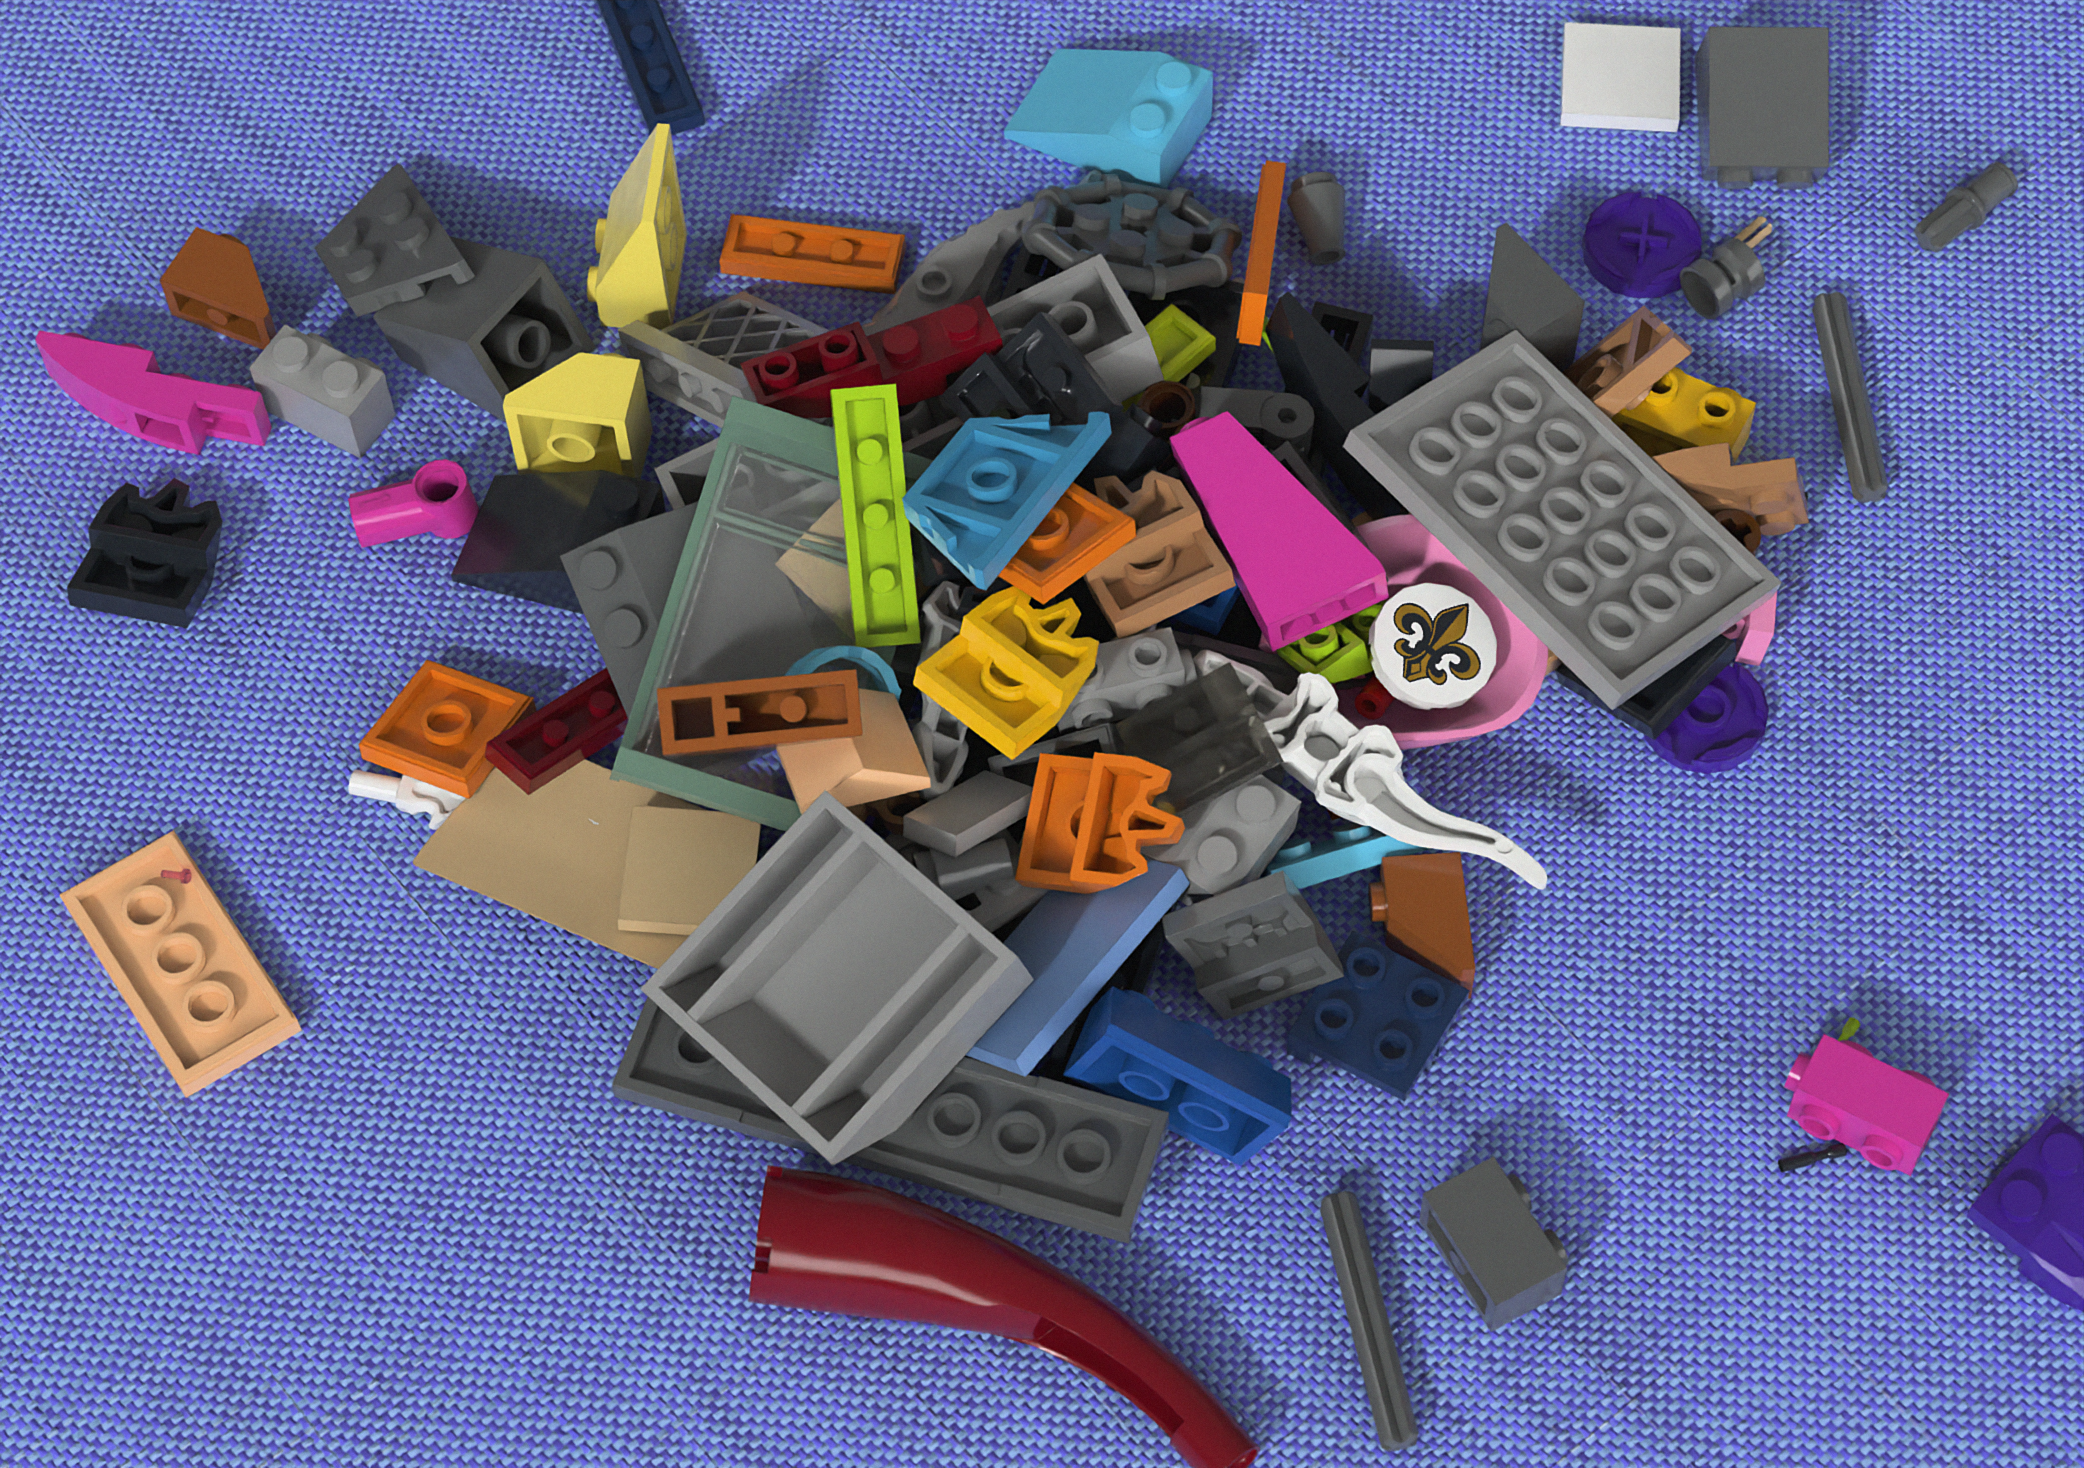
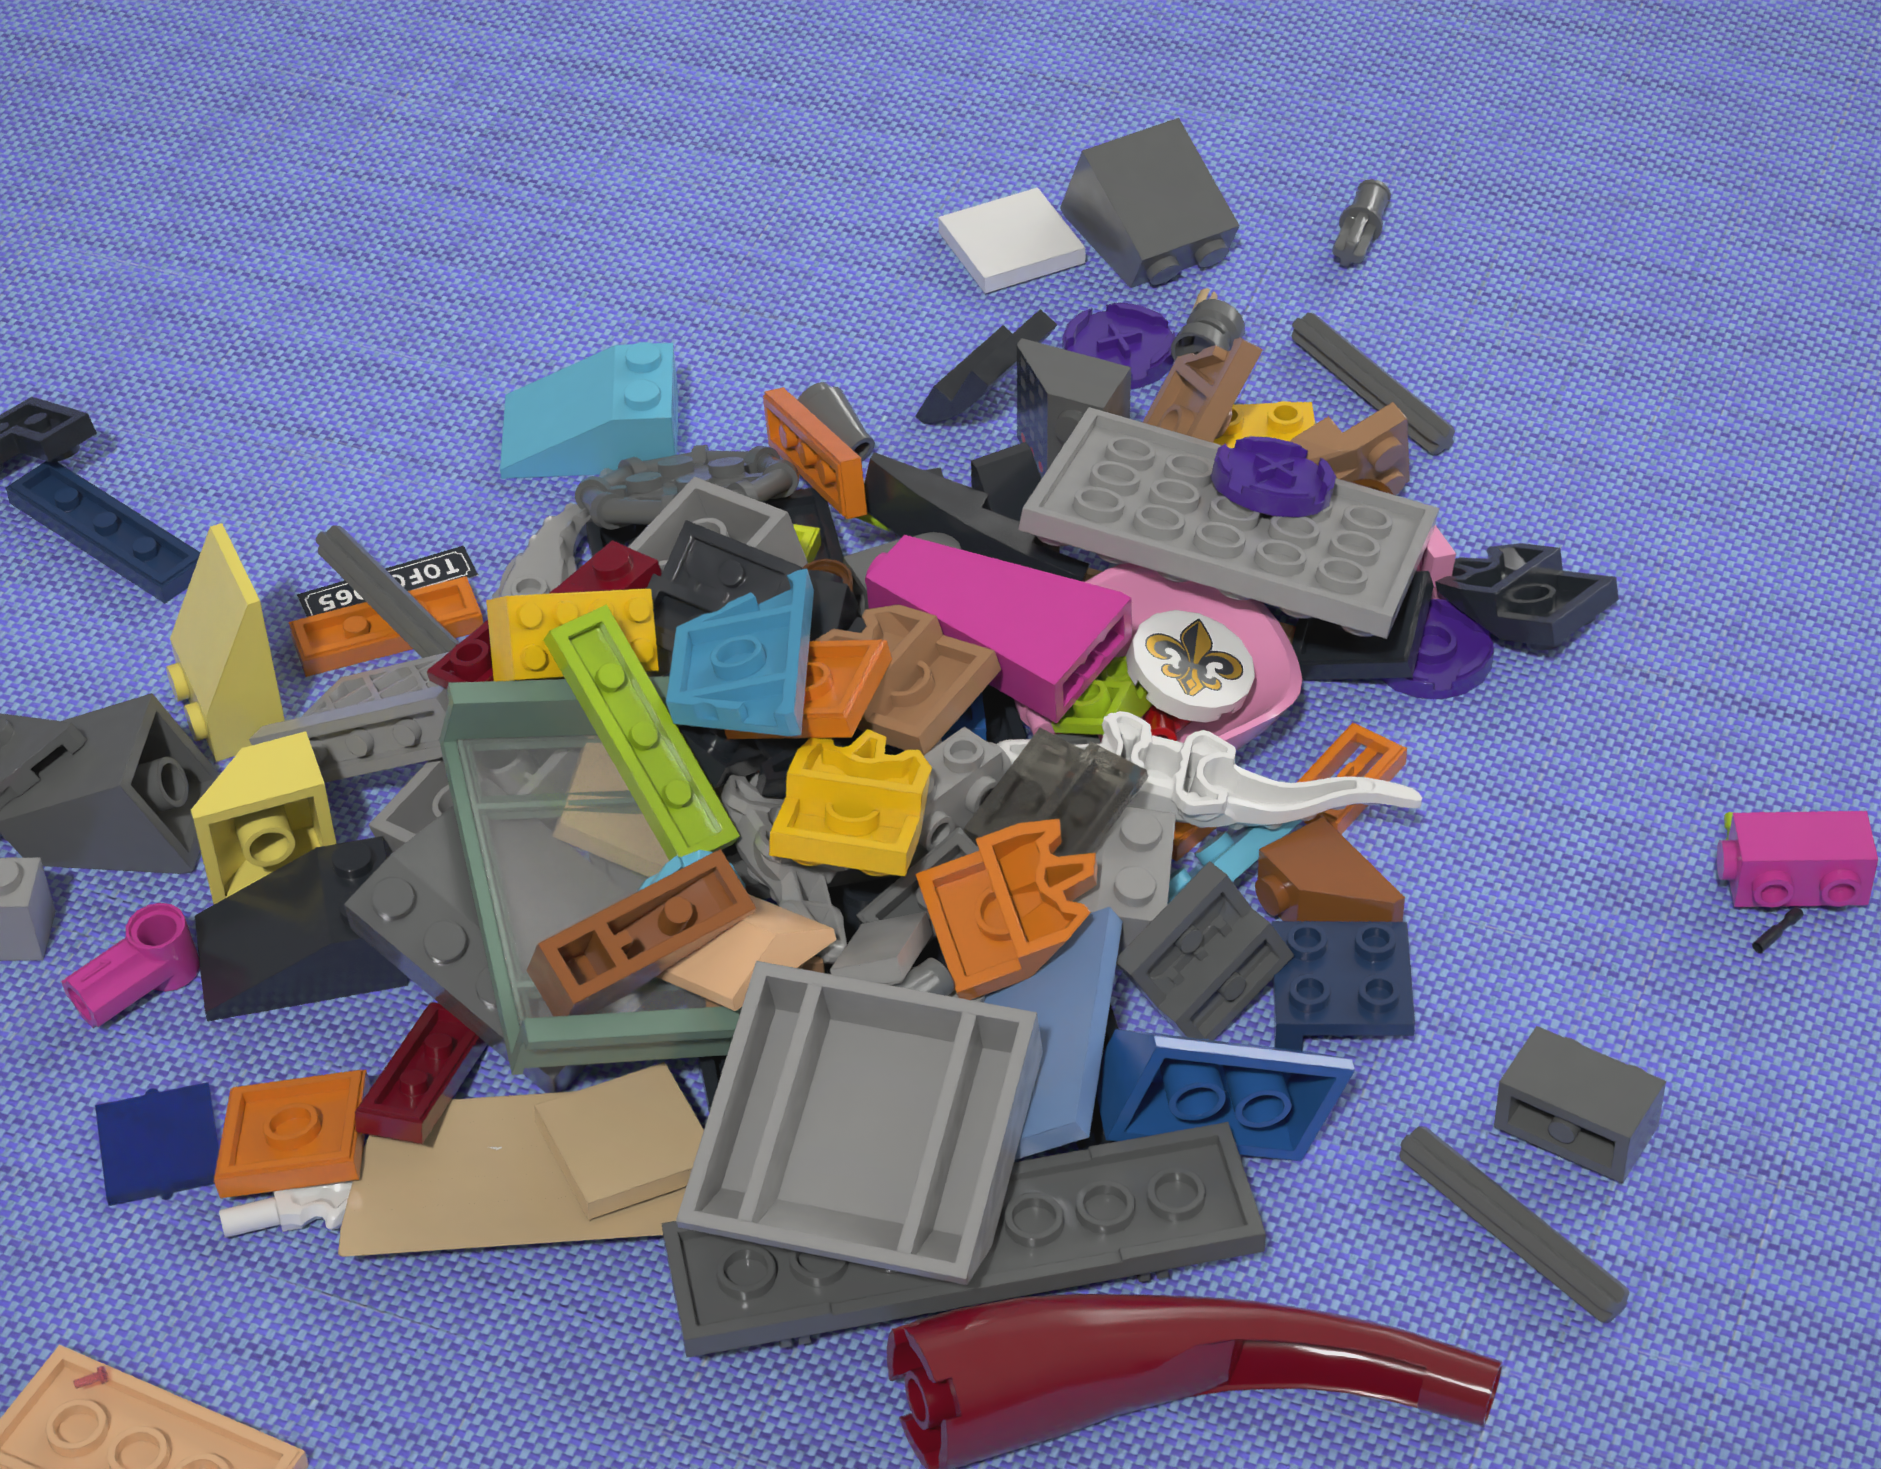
camera: 30 degrees left, 15 degrees down
(349, 678) = (158, 1143): none -> clear blue piece
(819, 233) = (384, 593): none -> dark grey axle
(844, 207) = (411, 575): none -> black sticker
(924, 384) = (523, 621): none -> yellow piece
(1477, 223) = (981, 370): none -> black slope
(1528, 788) = (1334, 757): none -> orange tile
(1629, 487) = (1273, 477): none -> dark purple tile
(1822, 702) = (1526, 594): none -> black plate

